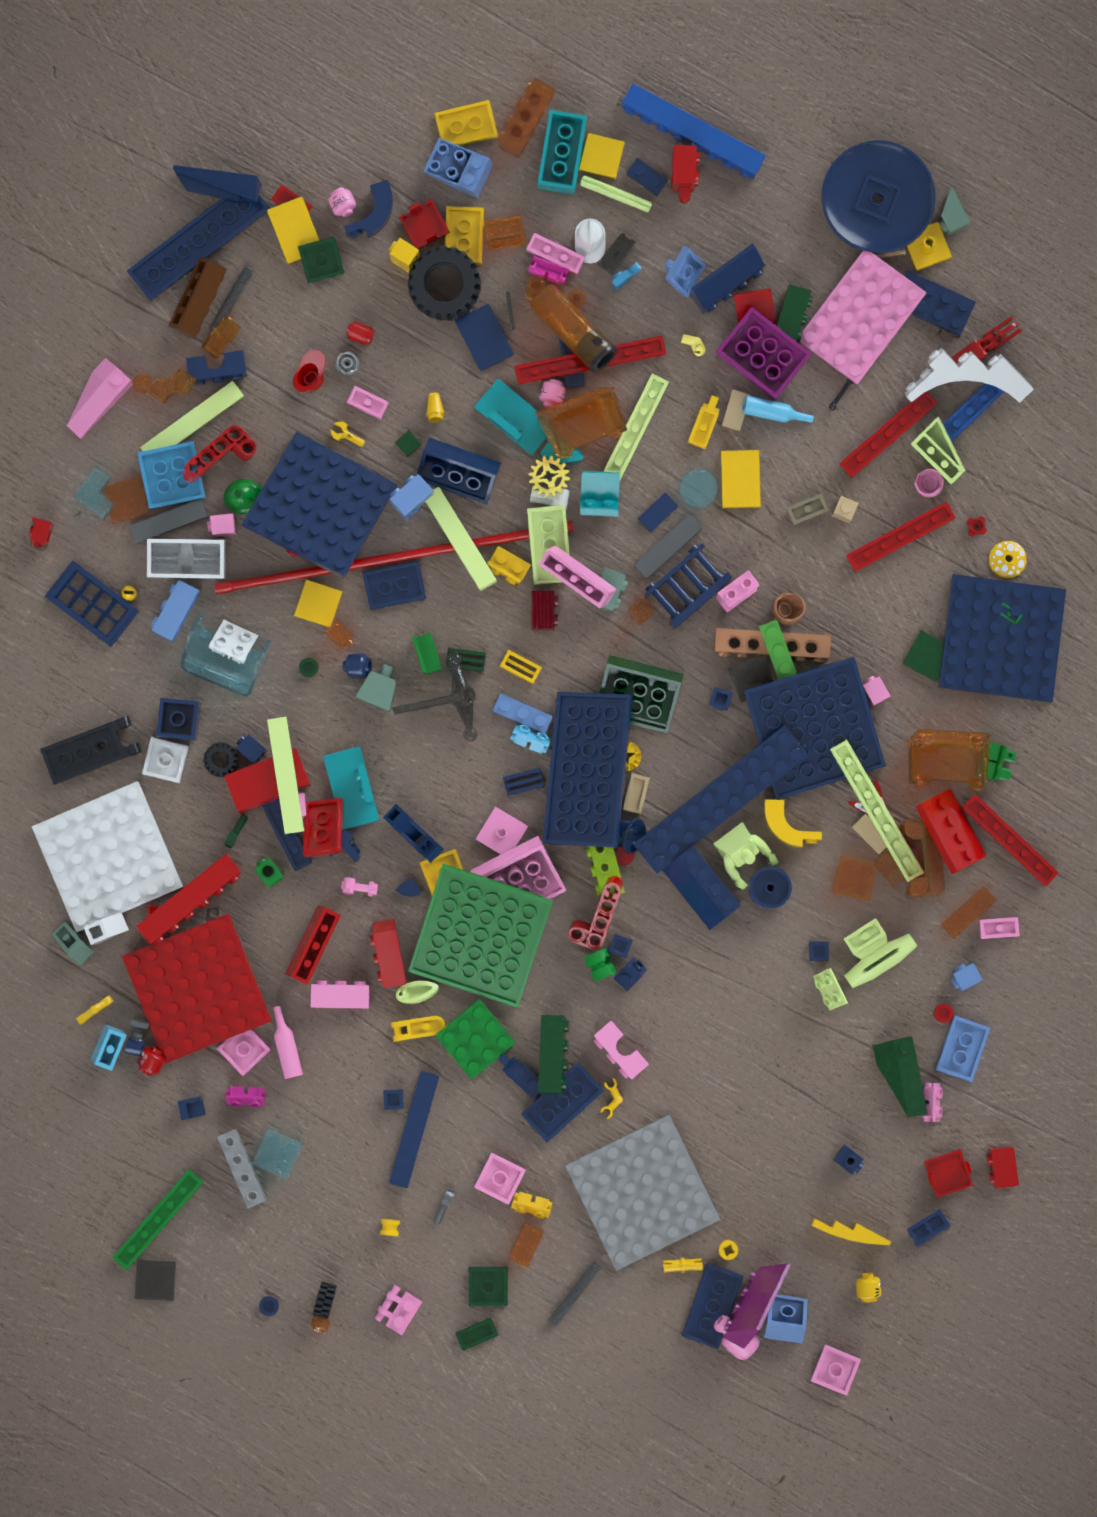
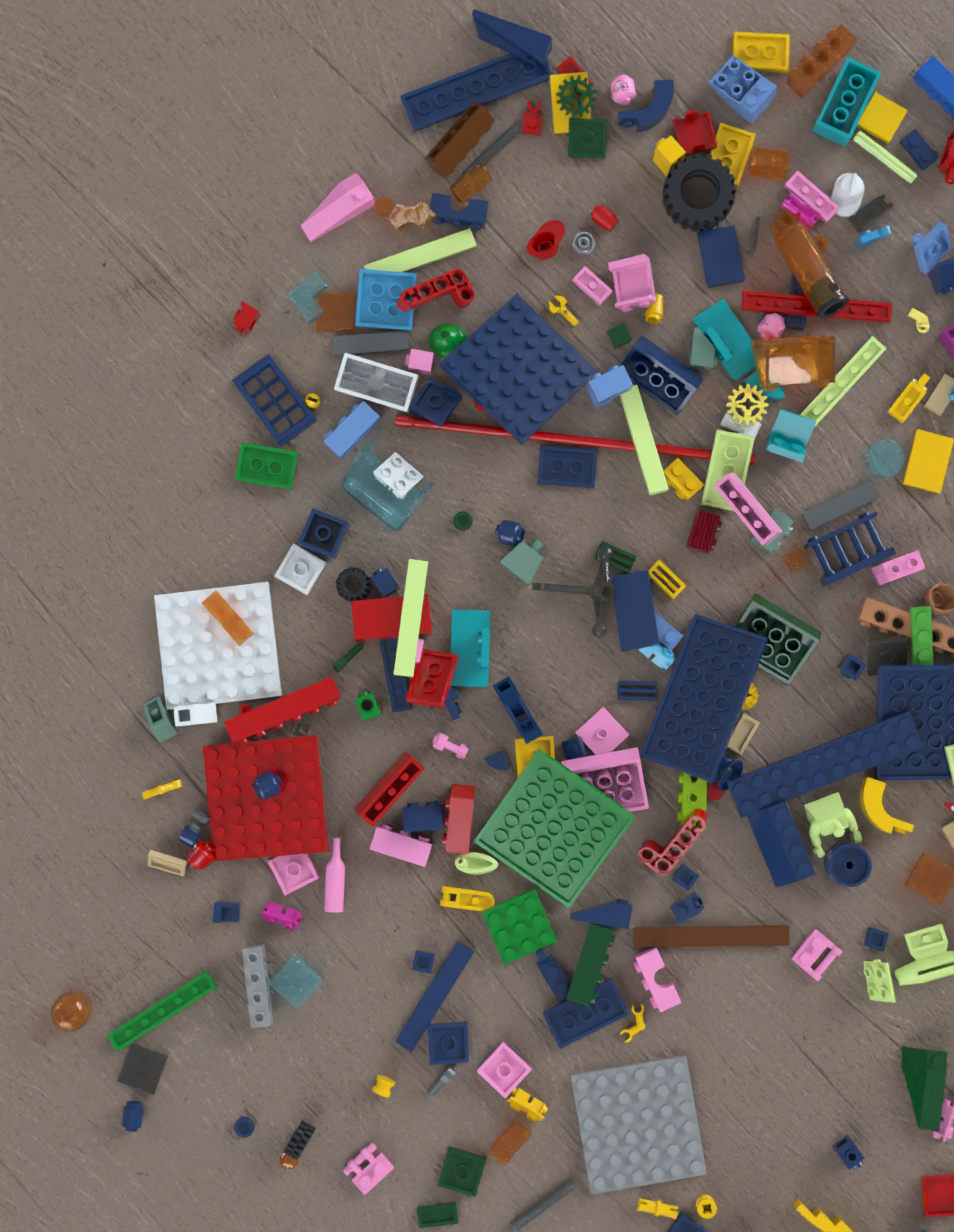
camera: 20 degrees right, 0 degrees up
(71, 1246) = (71, 1011): none -> clear orange cylinder
(81, 752) = (222, 539): black hinge -> none
(103, 670) = (266, 466): none -> green plate
(108, 1047) = (163, 830): medium azure brick -> none
(109, 827) = (228, 618): none -> clear orange tile
(121, 1078) = (167, 863): none -> tan tile
(159, 1326) = (132, 1116): none -> dark blue brick
(195, 974) = (267, 785): none -> dark blue head
(249, 560) = (436, 402): none -> dark blue plate
(262, 258) = (532, 121): none -> red plate
(289, 230) = (568, 98): none -> dark green gear
(318, 603) = (489, 463): yellow tile -> none
(340, 635) = (501, 498): clear orange brick -> none
(353, 962) = (423, 817): none -> dark blue slope
(406, 389) = (633, 282): none -> bright pink panel
(427, 653) = (579, 541): green panel -> none
(439, 1168) = (448, 1043): none -> dark blue plate
(479, 854) = (574, 748): none -> dark blue plate
(492, 437) = (701, 352): none -> sand green slope
(498, 705) = (635, 611): none -> dark blue tile
(559, 1001) = (610, 914): none -> dark blue slope
(600, 965) = (661, 890): green wheel -> none
(658, 512) = (839, 470): dark blue tile -> none
(661, 994) = (711, 936): none -> reddish brown tile
(760, 979) = (811, 950): none -> bright pink plate

